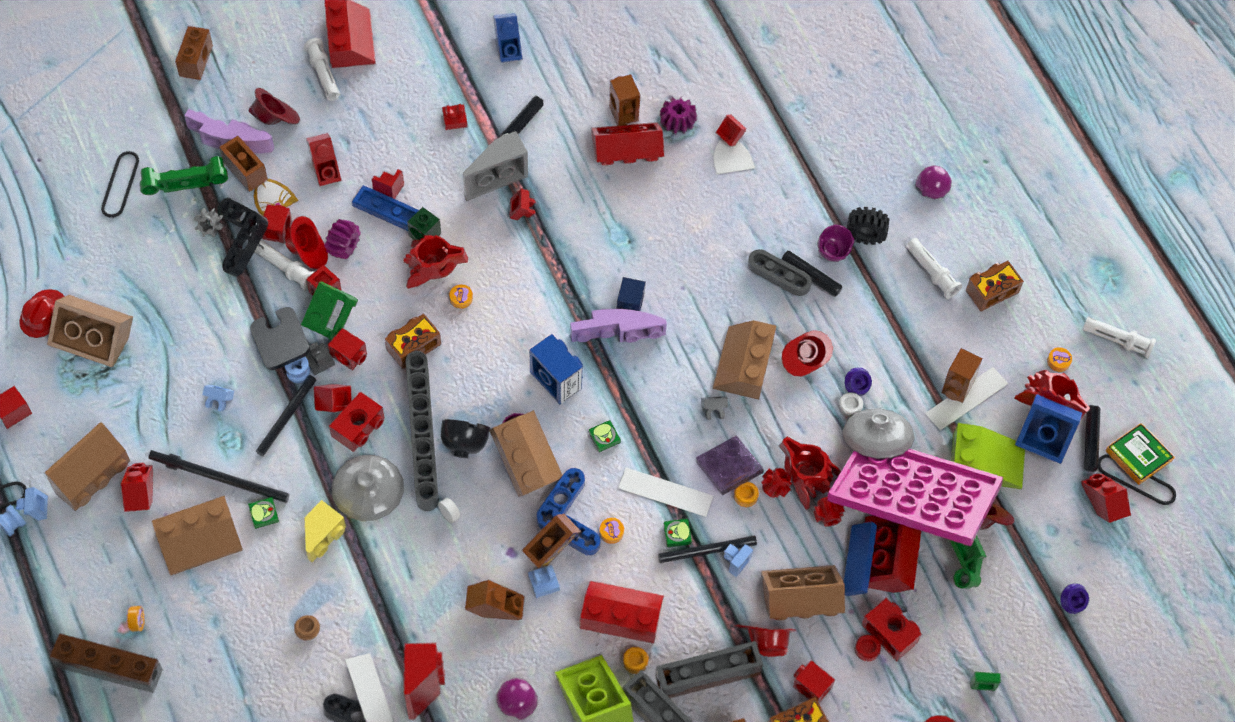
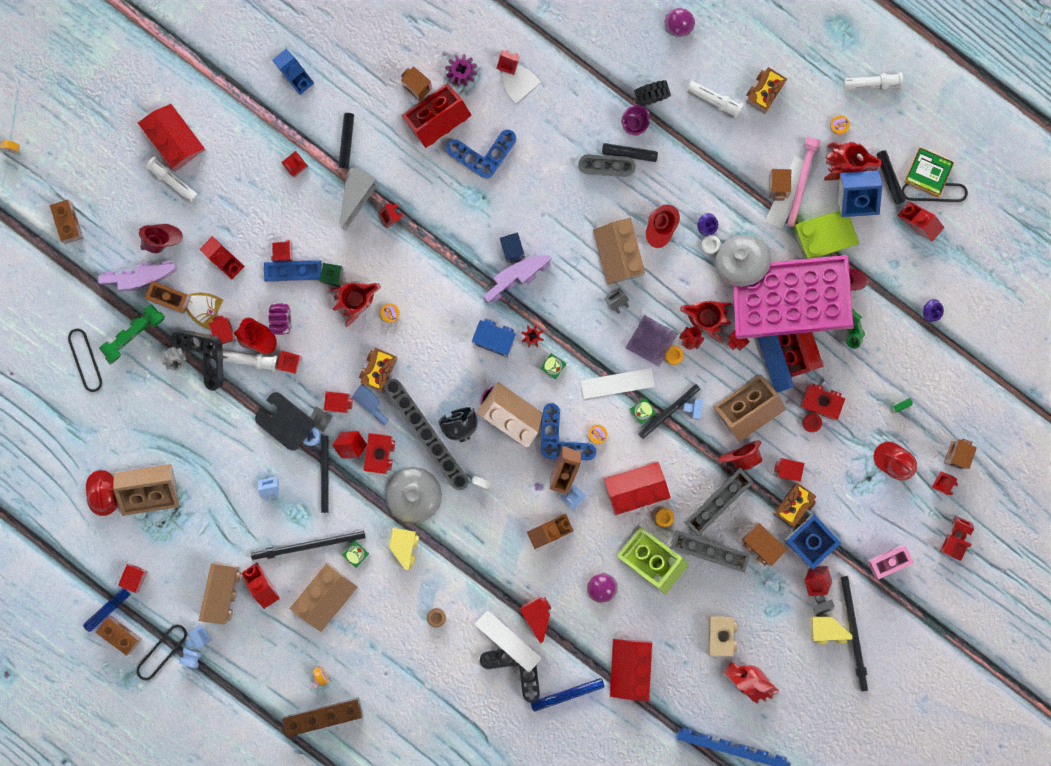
camera: 25 degrees left, 25 degrees up
(322, 308) = (301, 383): green plate -> none
(382, 367) = (370, 402): none -> medium blue piece
(603, 392) = (530, 332): none -> red gear
(655, 207) = (487, 159): none -> blue beam
(1017, 362) = (812, 145): none -> bright pink piece

